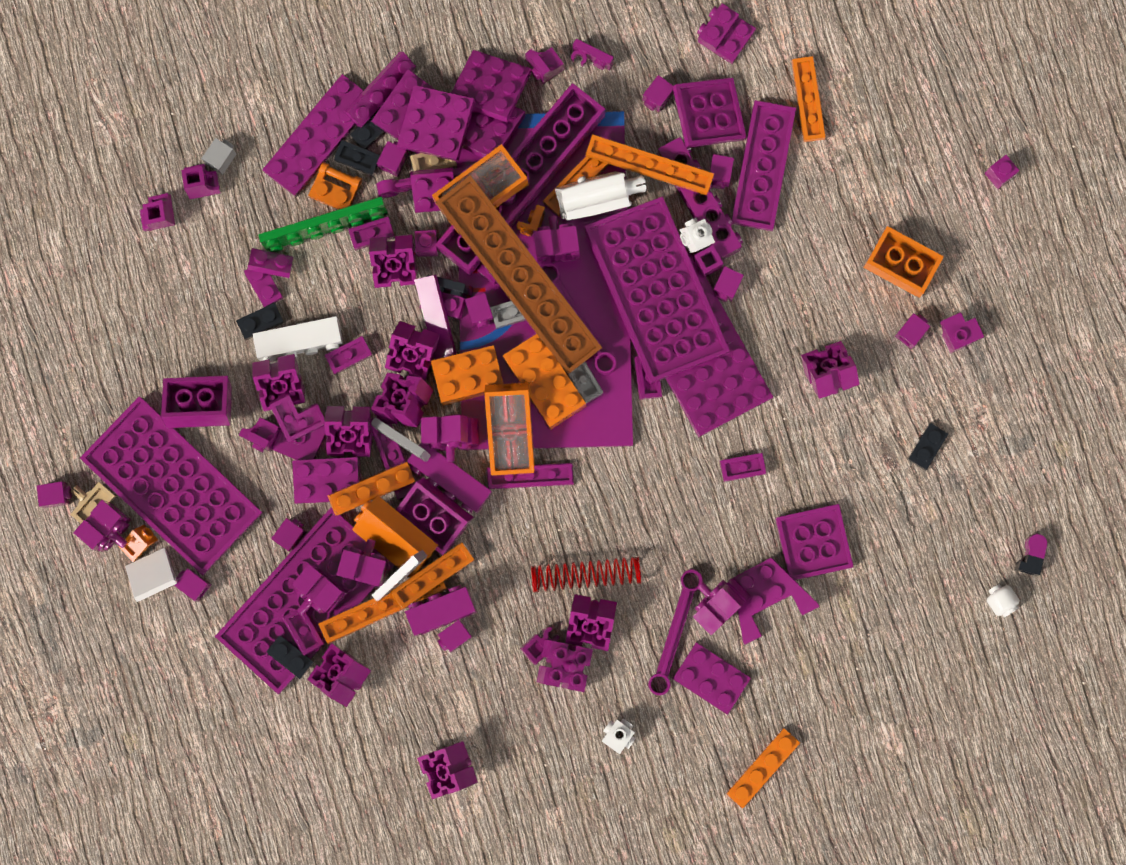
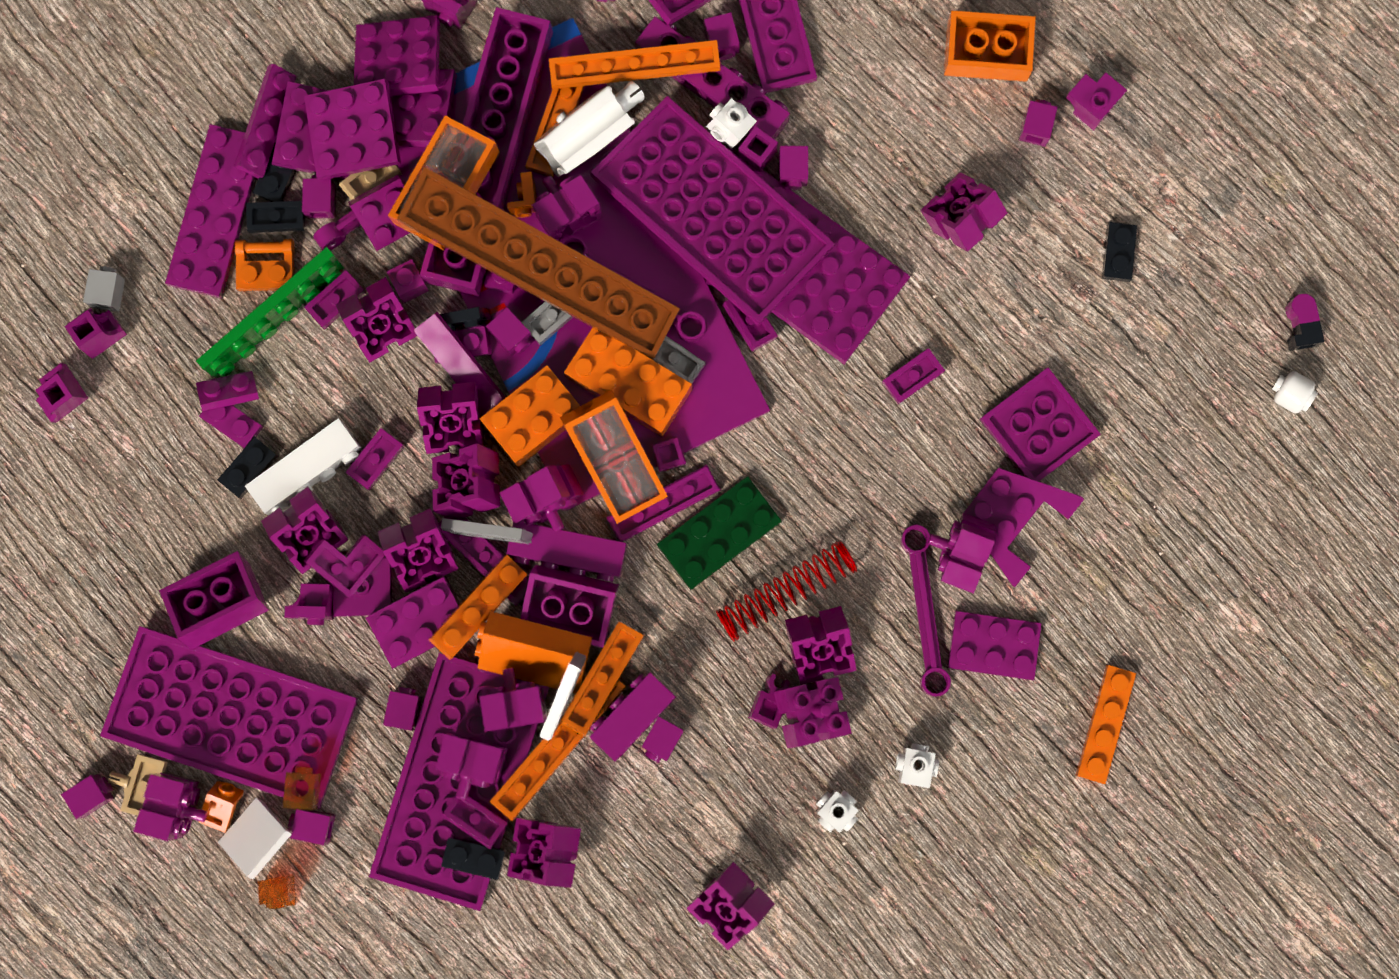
camera: 30 degrees left, 0 degrees up
(149, 618) = (277, 892): none -> clear orange brick
(188, 560) = (292, 798): none -> clear orange brick
(549, 443) = (668, 454): none -> magenta tile
(557, 735) = (828, 803): none -> white brick
(558, 513) = (719, 533): none -> dark green piece

